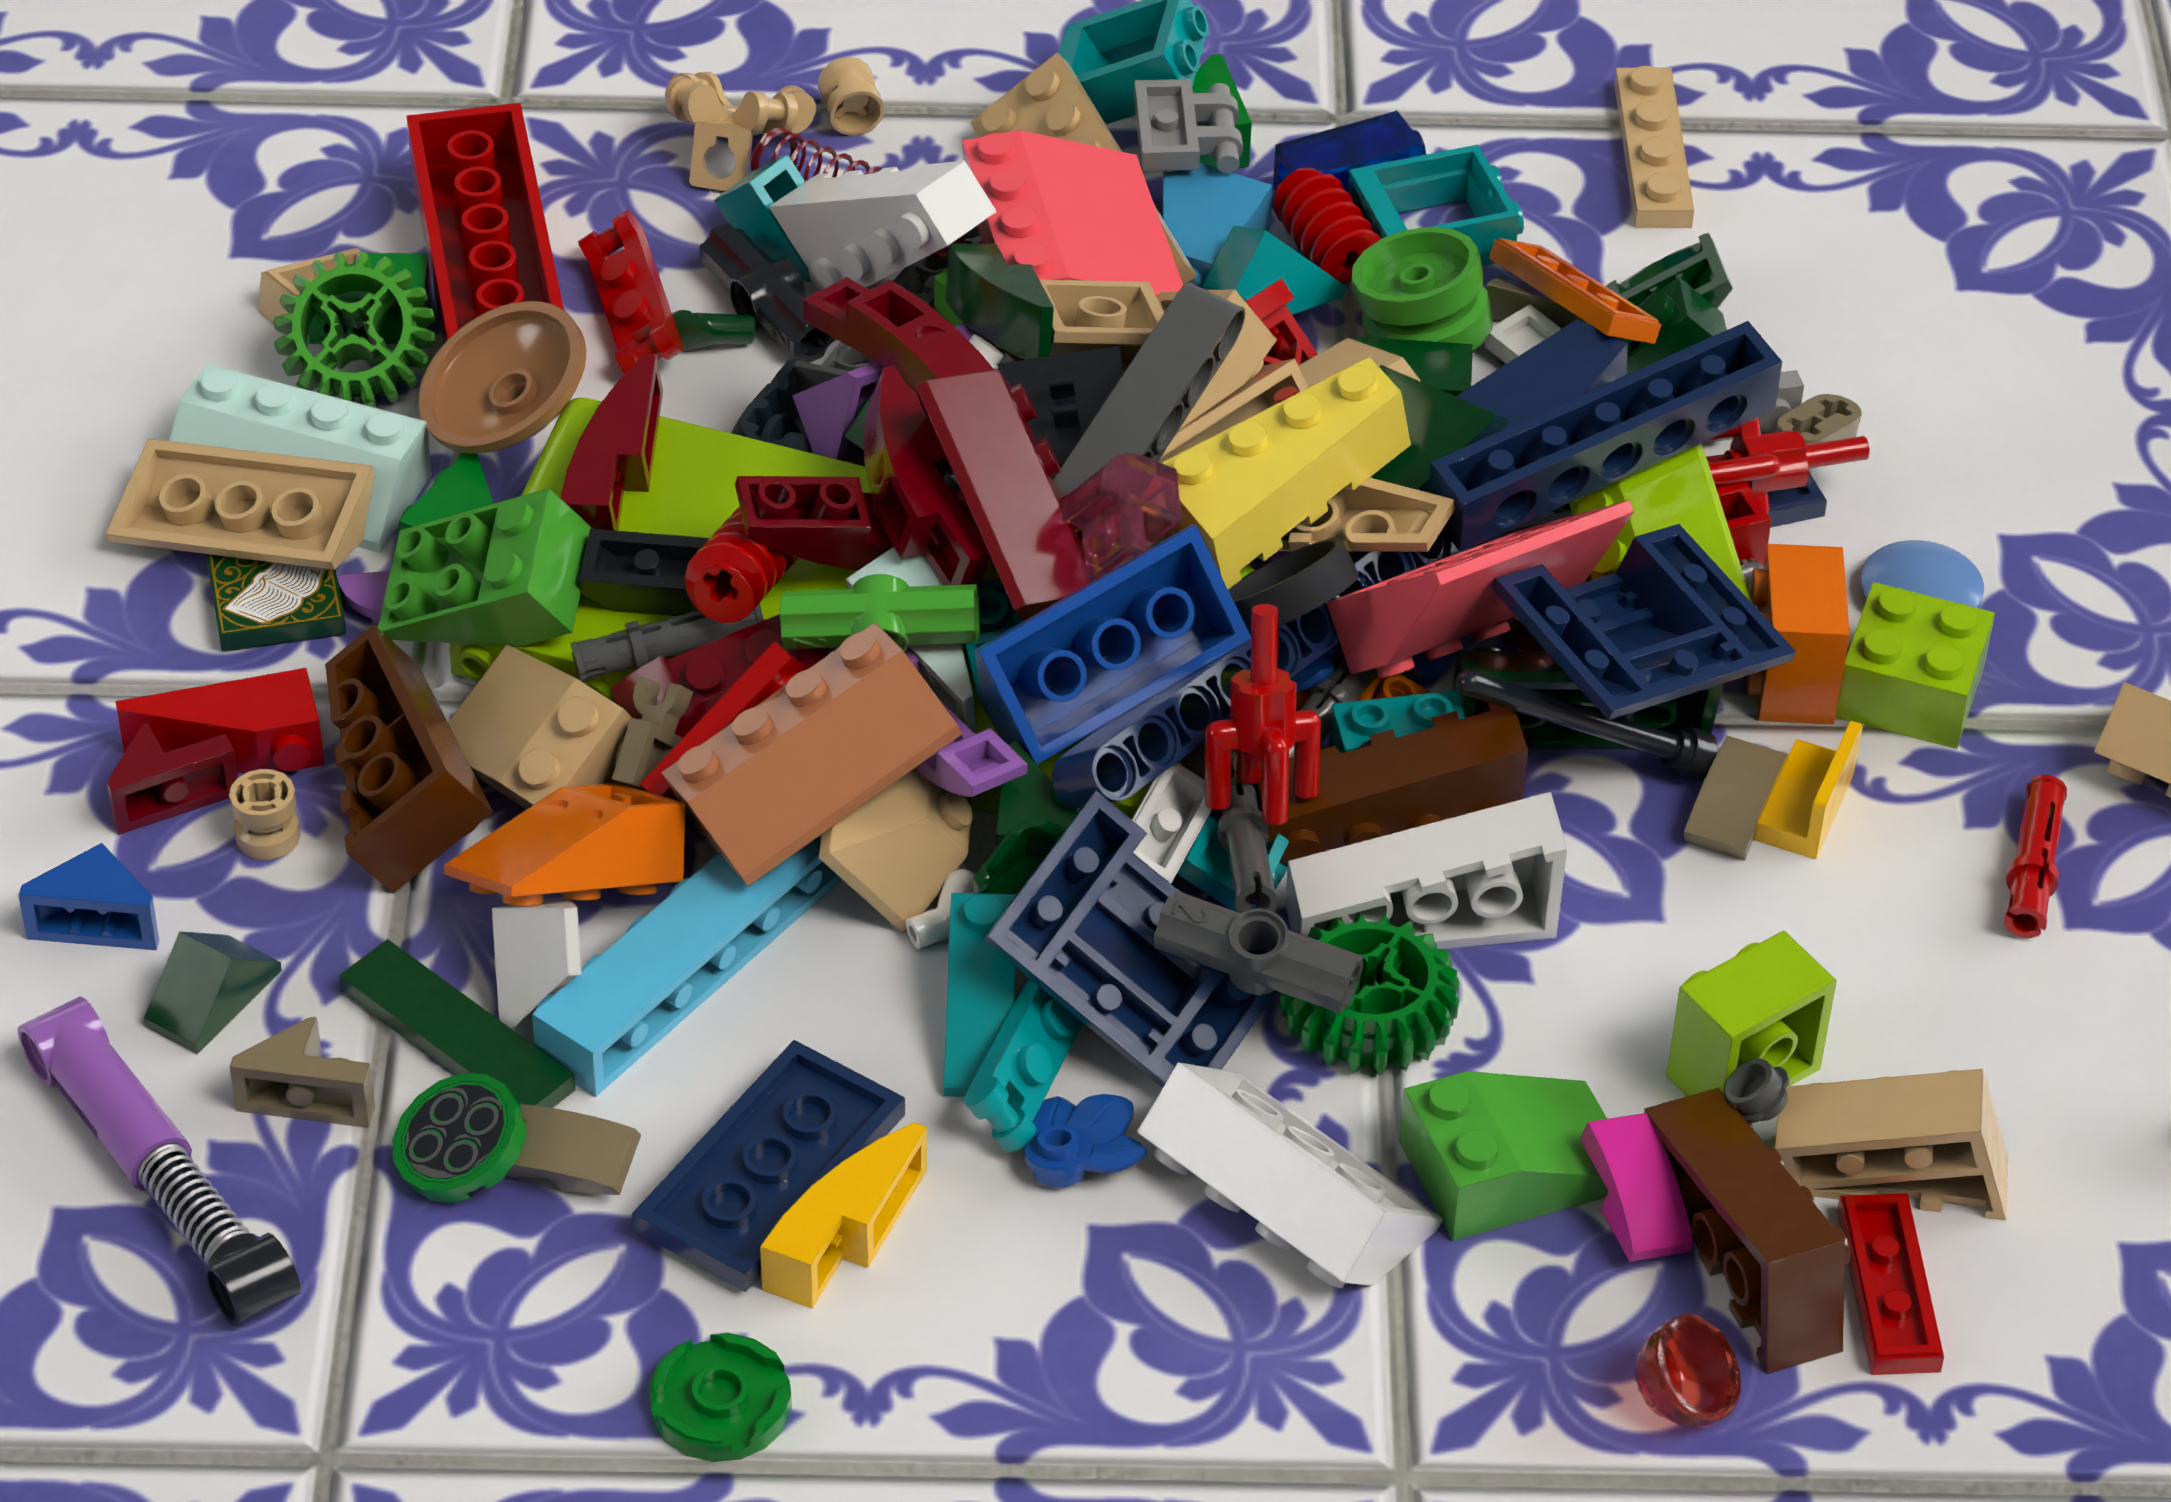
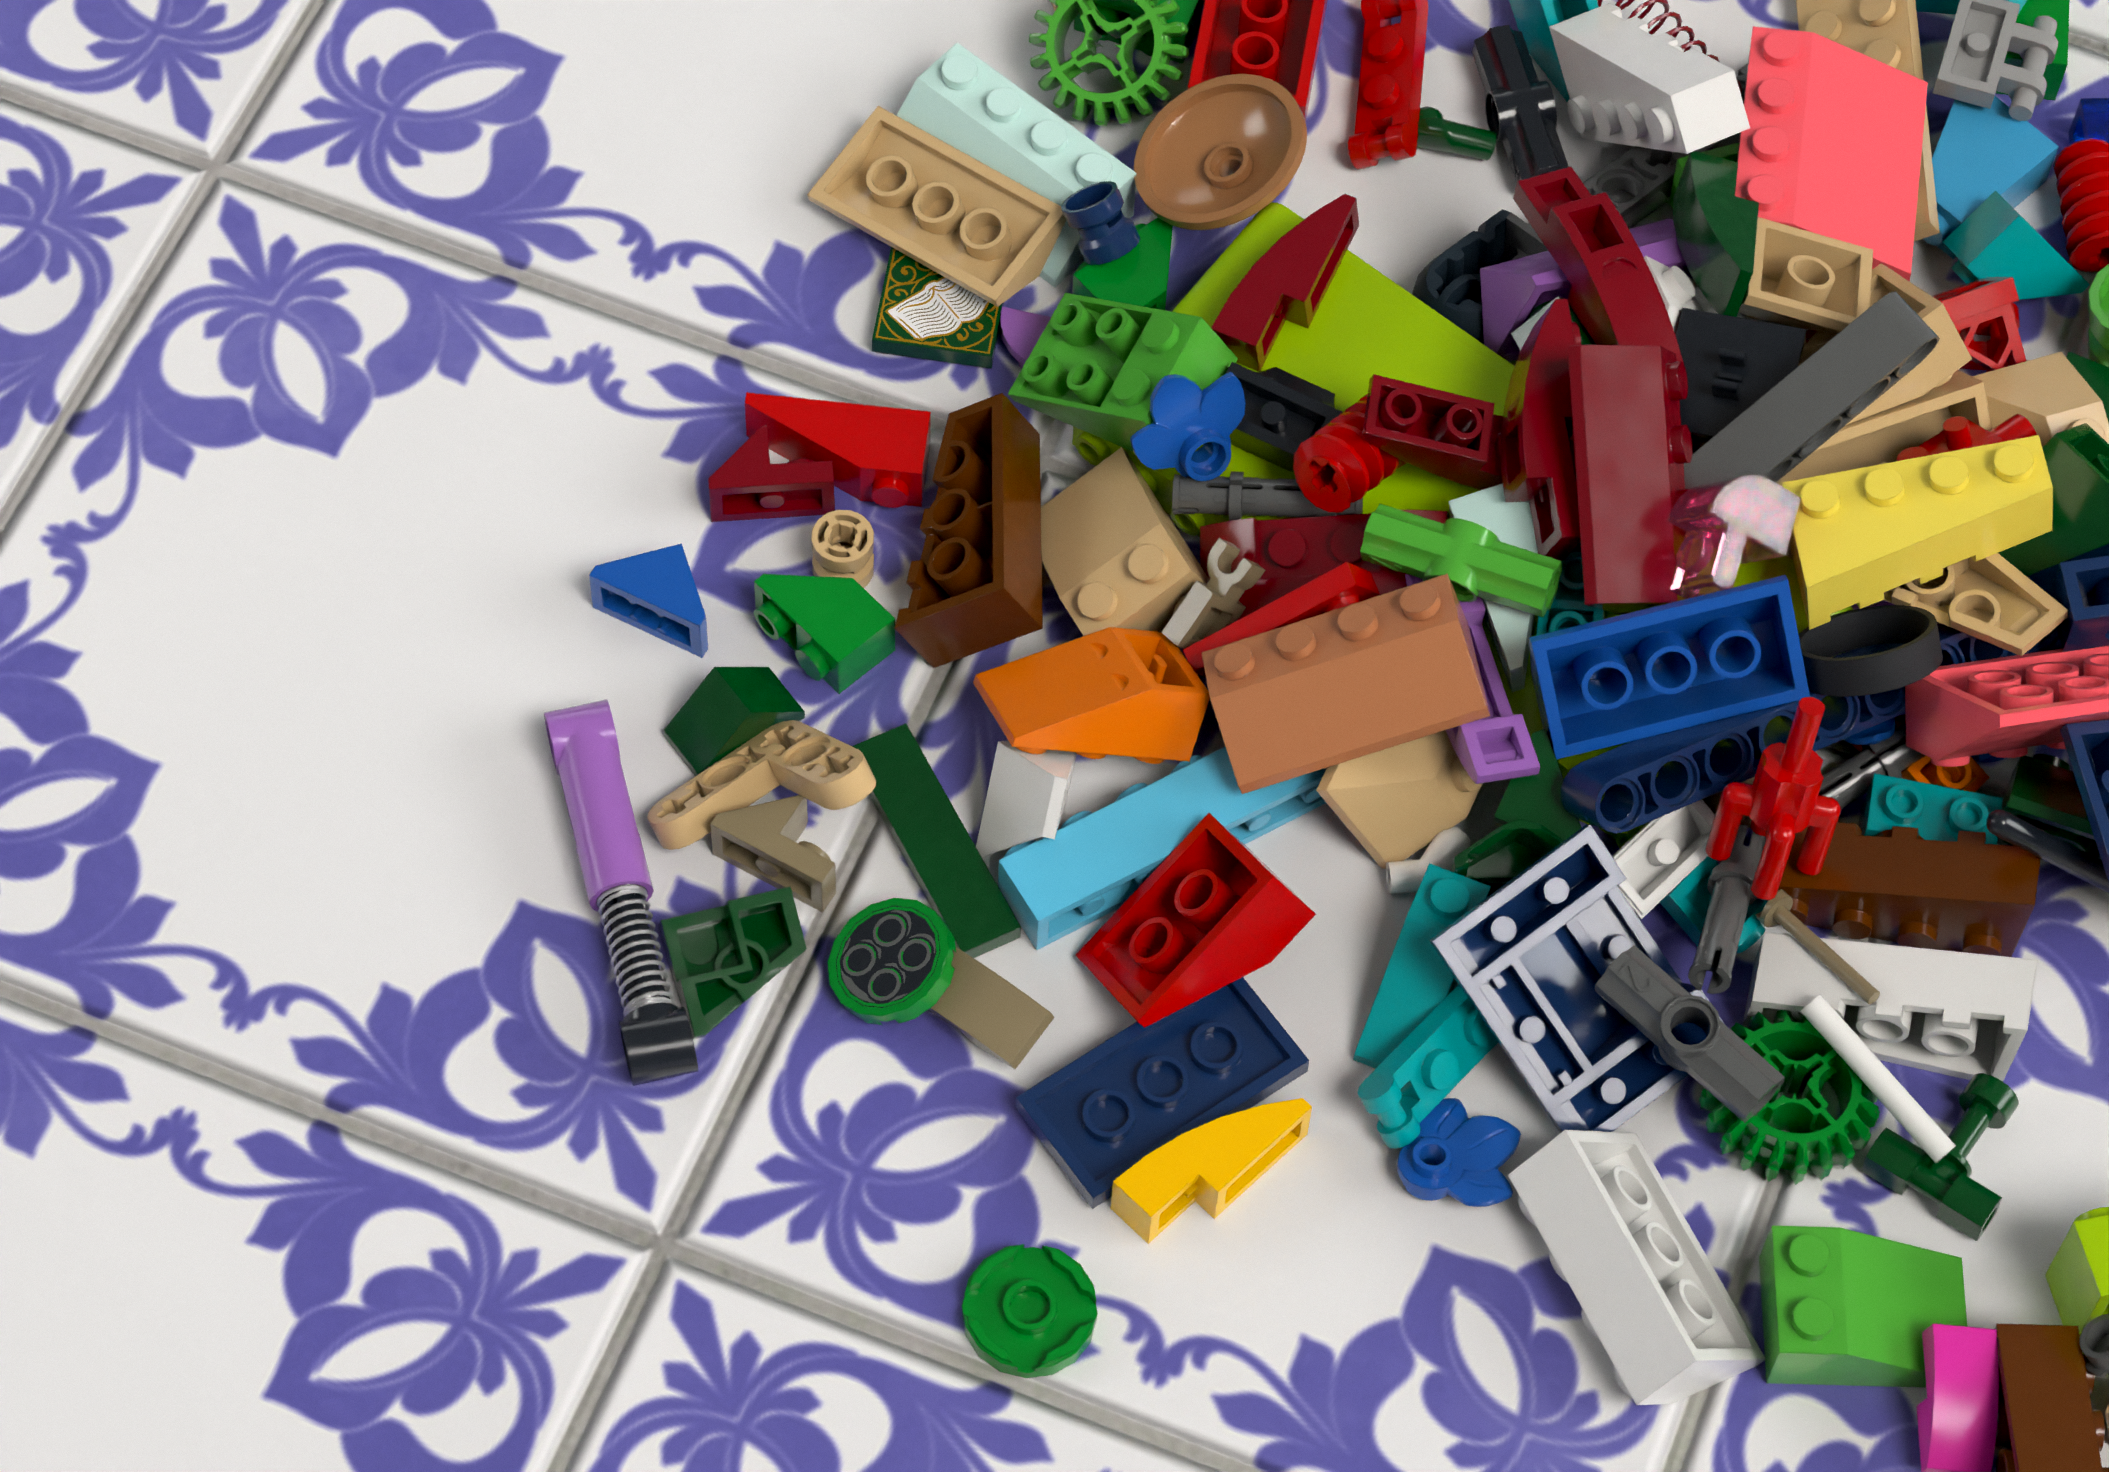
camera: 20 degrees right, 15 degrees up
(272, 877) = (827, 622): none -> green slope
(276, 996) = (780, 755): none -> tan beam
(293, 1177) = (730, 953): none -> dark green slope
(410, 466) = (1100, 223): none -> dark blue wheel
(570, 580) = (1186, 420): none -> blue plate
(748, 1009) = (1194, 926): none -> red slope
(1294, 837) = (1778, 911): none -> dark tan piece
(1447, 942) = (1878, 1078): none -> white bar
(1536, 1009) = (1961, 1199): none -> dark green bar

